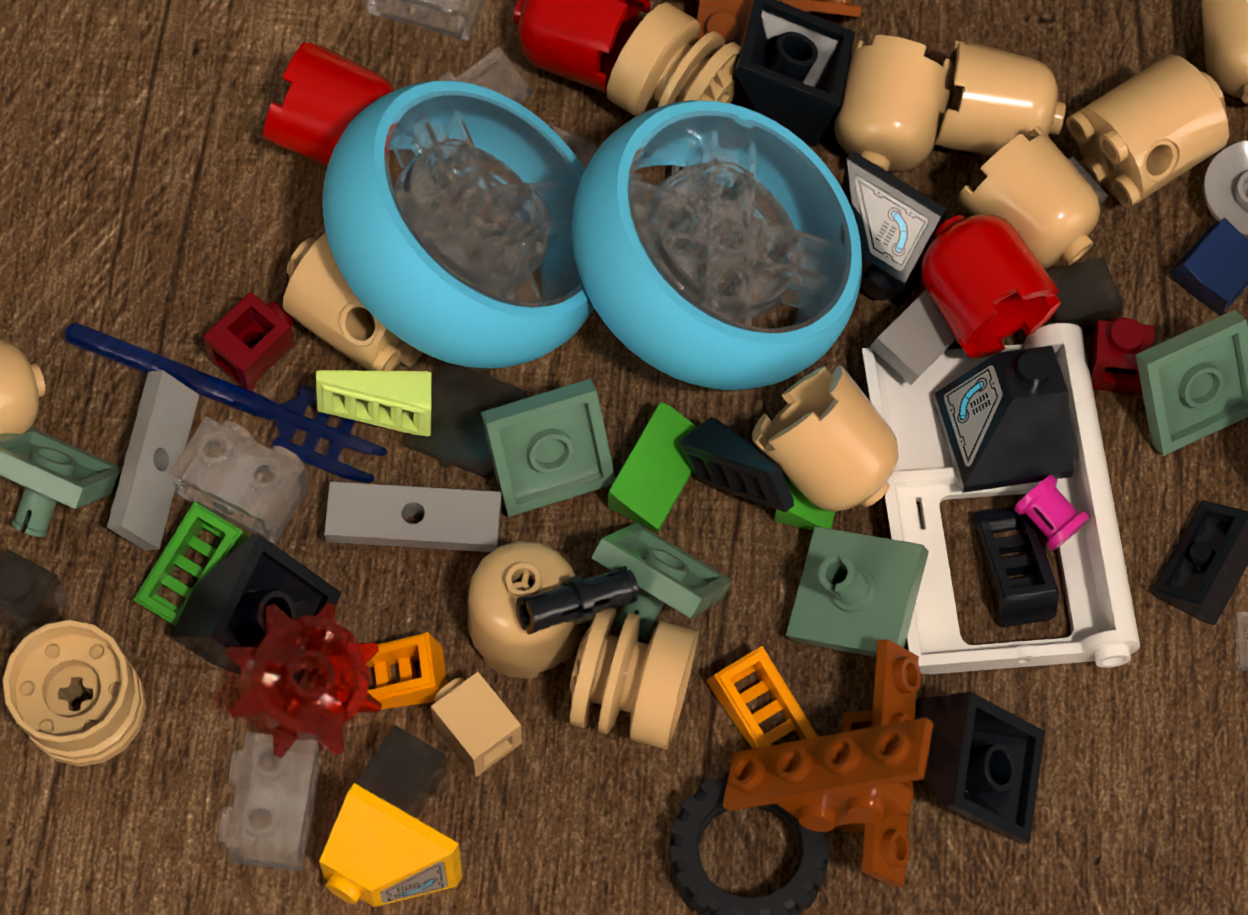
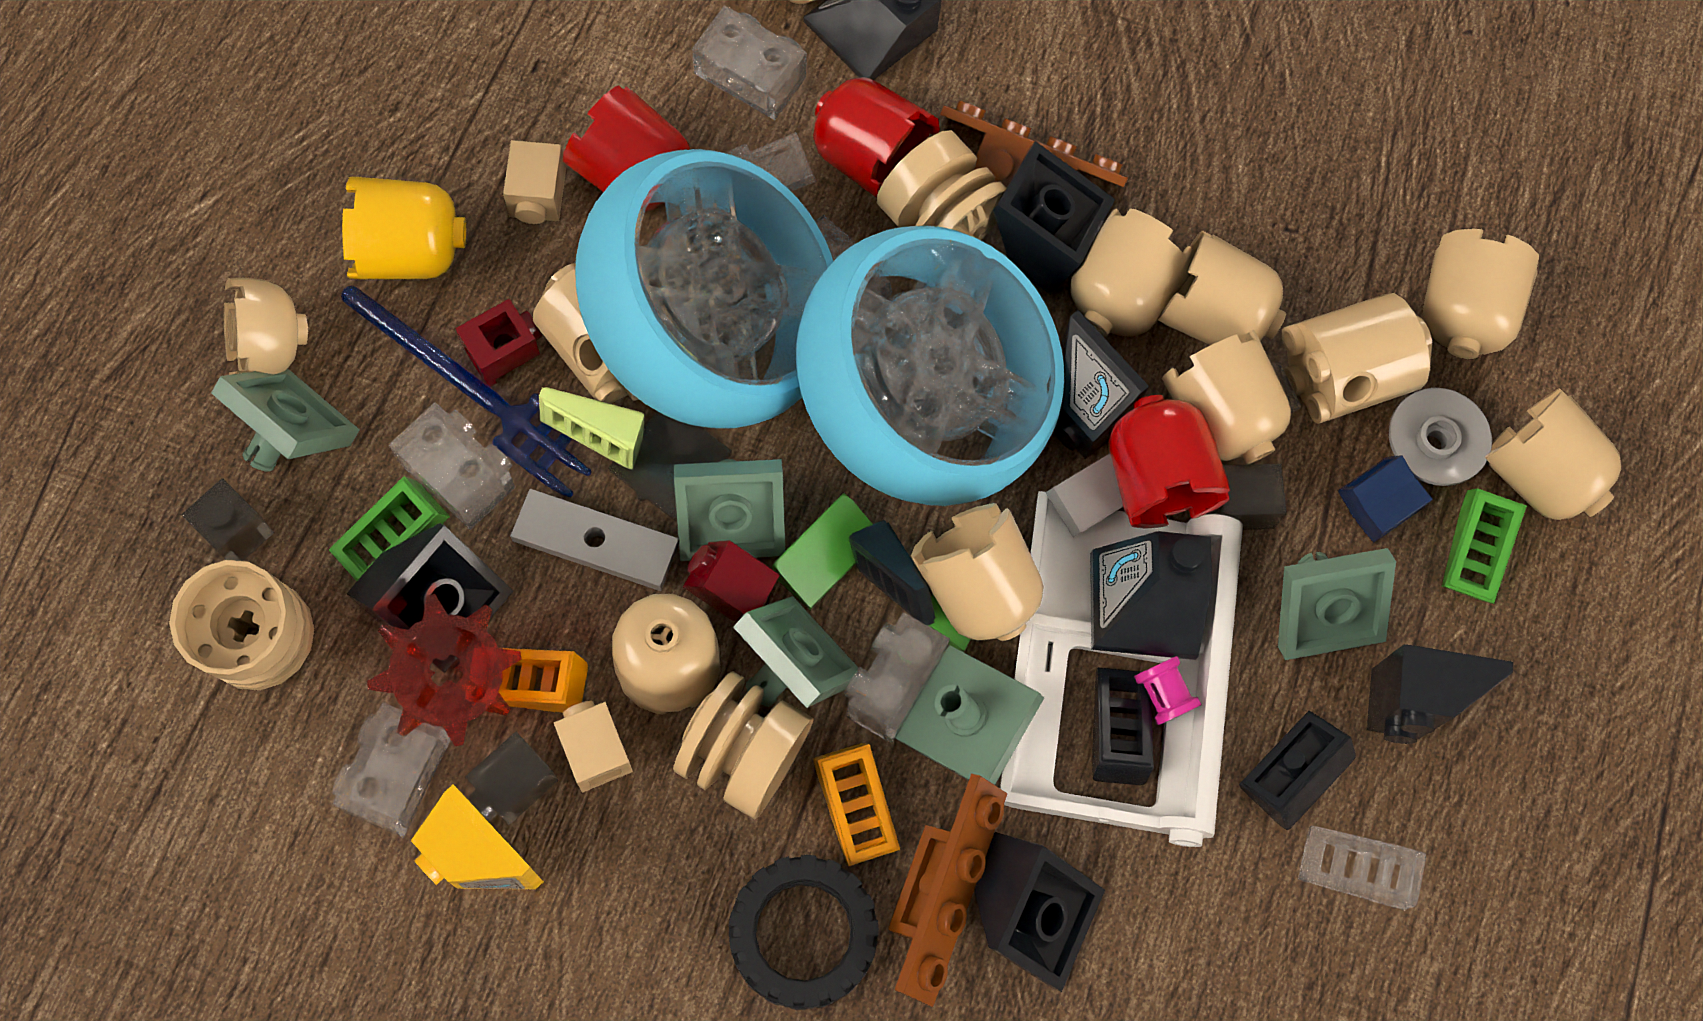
camera: 10 degrees right, 5 degrees up
(114, 249) = (400, 229): none -> yellow cylinder
(154, 447) = (392, 406): light grey tile -> none
(236, 166) = (534, 181): none -> tan brick
(568, 517) = (729, 579): none -> dark red brick
(576, 600) = (705, 666): black pin -> none
(770, 573) = (896, 677): none -> clear brick
(834, 776) = (892, 896): dark orange bracket -> none
(1116, 346) = (1270, 550): dark red brick -> none

